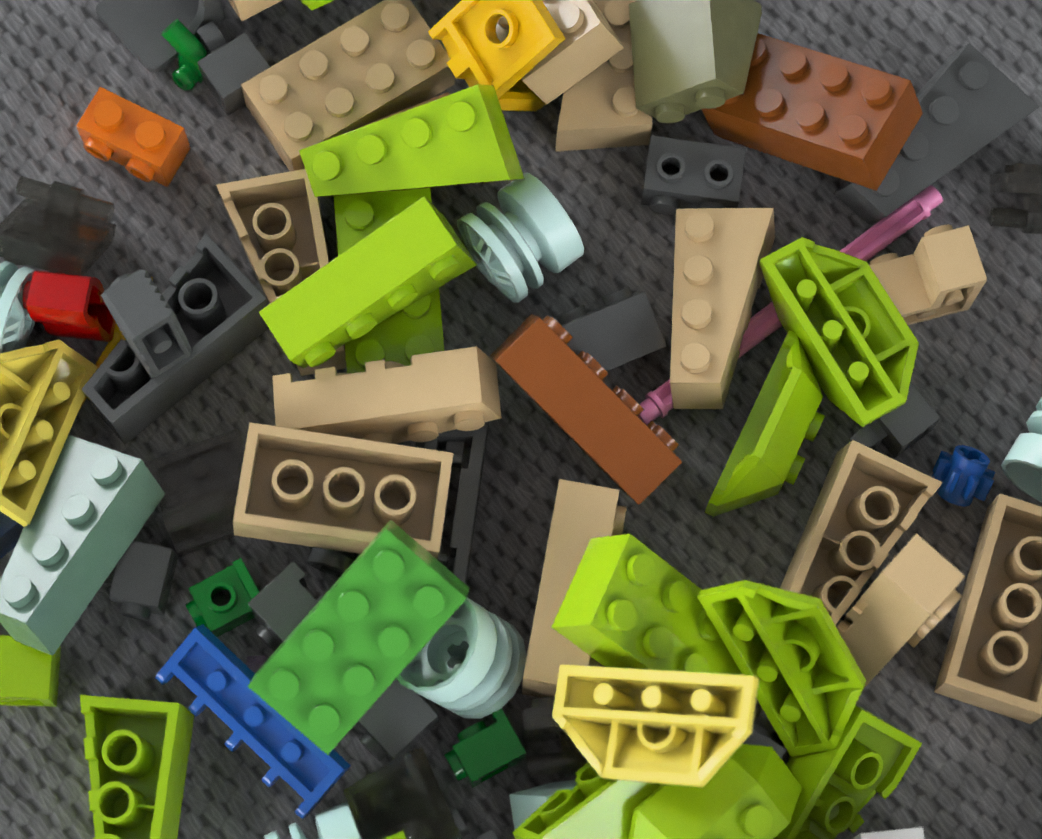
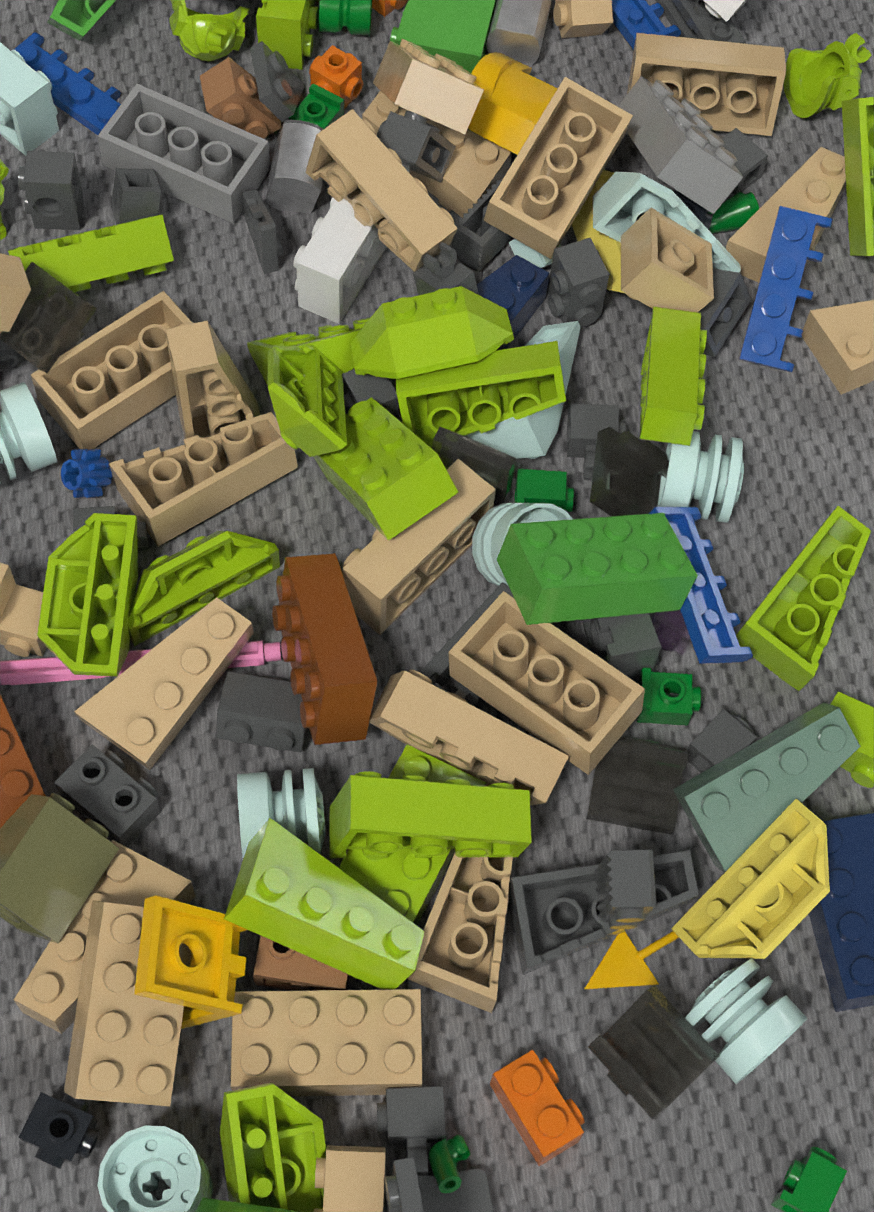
camera: 150 degrees left, 10 degrees down
(69, 306) = (674, 972): red brick -> none
(655, 721) = (428, 385): light yellow wedge -> none

